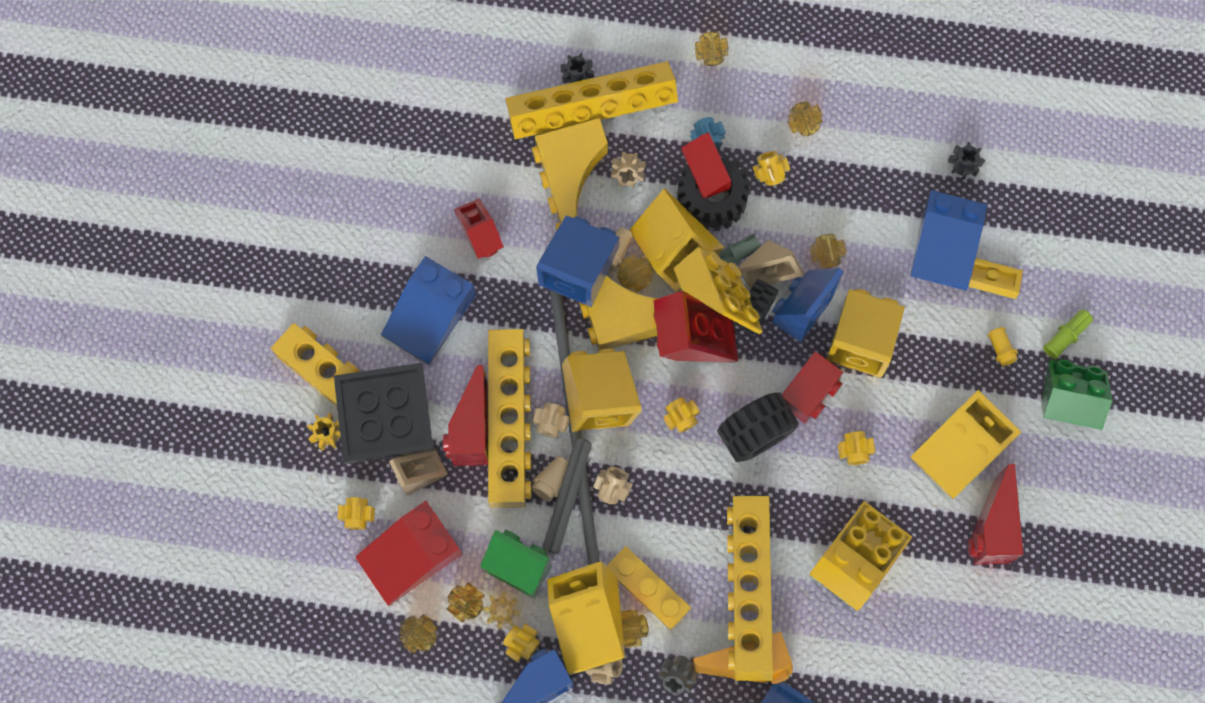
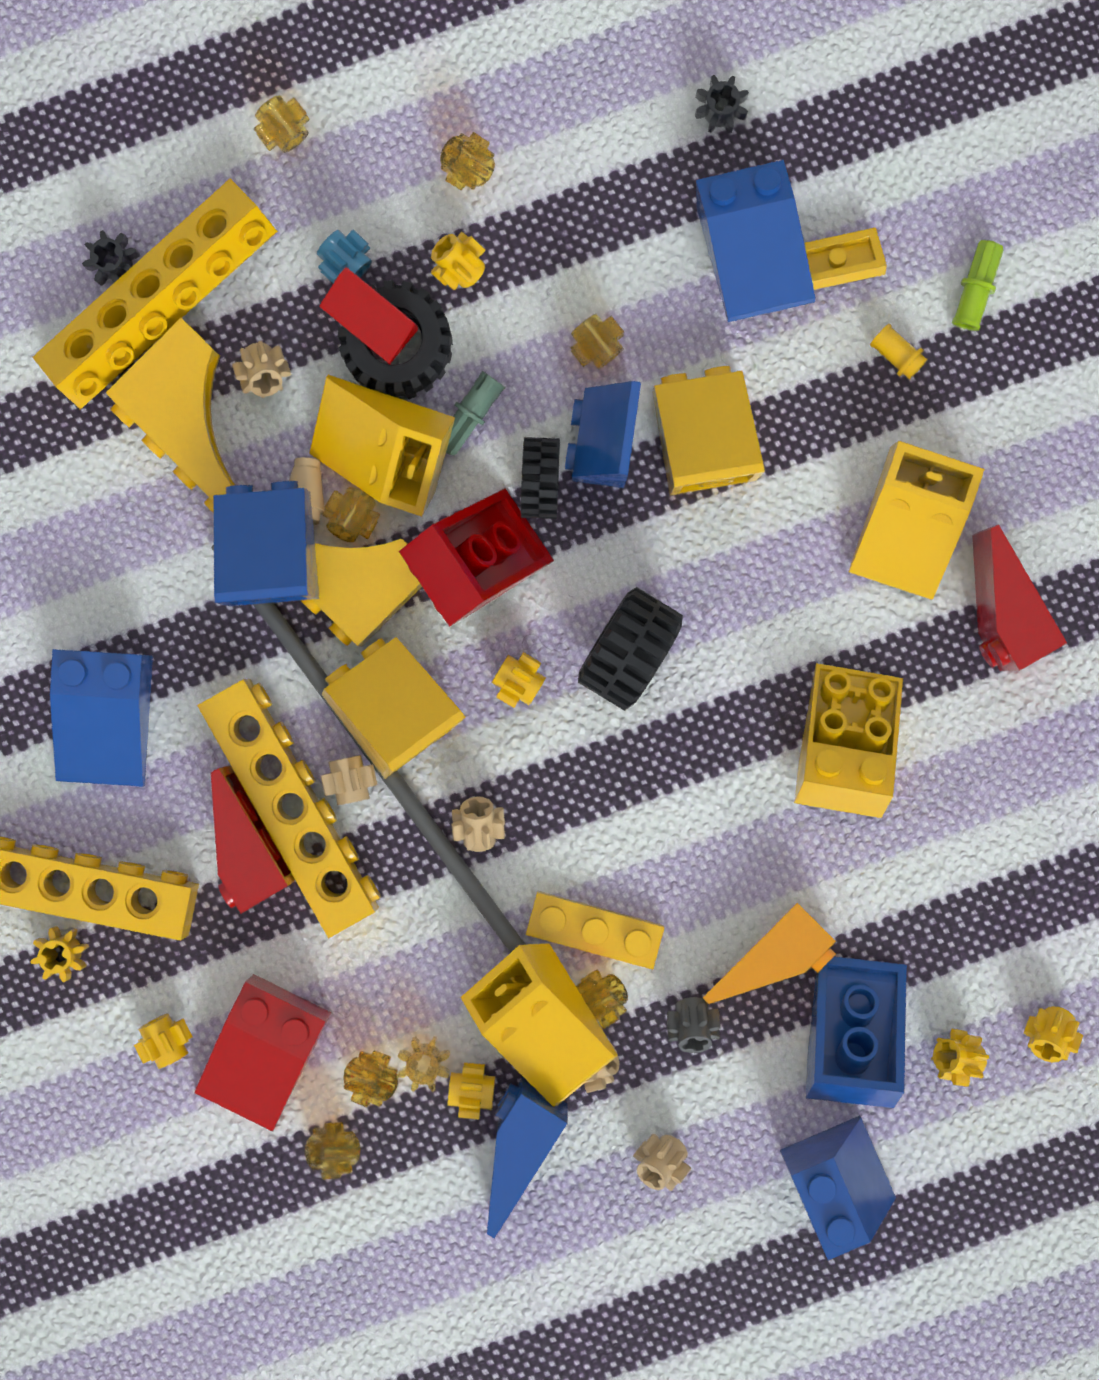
camera: 30 degrees left, 15 degrees up
(383, 413) = (122, 898): black plate -> none
(417, 470) = (210, 941): tan slope -> none
(479, 228) = (102, 564): red slope -> none
(516, 563) = (408, 996): green slope -> none
(549, 481) = (392, 856): tan cone -> none
(567, 495) = (425, 868): dark grey axle -> none
(717, 286) = (480, 494): yellow slope -> none
(755, 664) = (686, 760): yellow brick -> none
(770, 264) = (529, 407): tan slope -> none
(812, 386) = (672, 548): red brick -> none
(856, 448) = (773, 601): yellow gear -> none
(1076, 394) = (1029, 368): green slope -> none

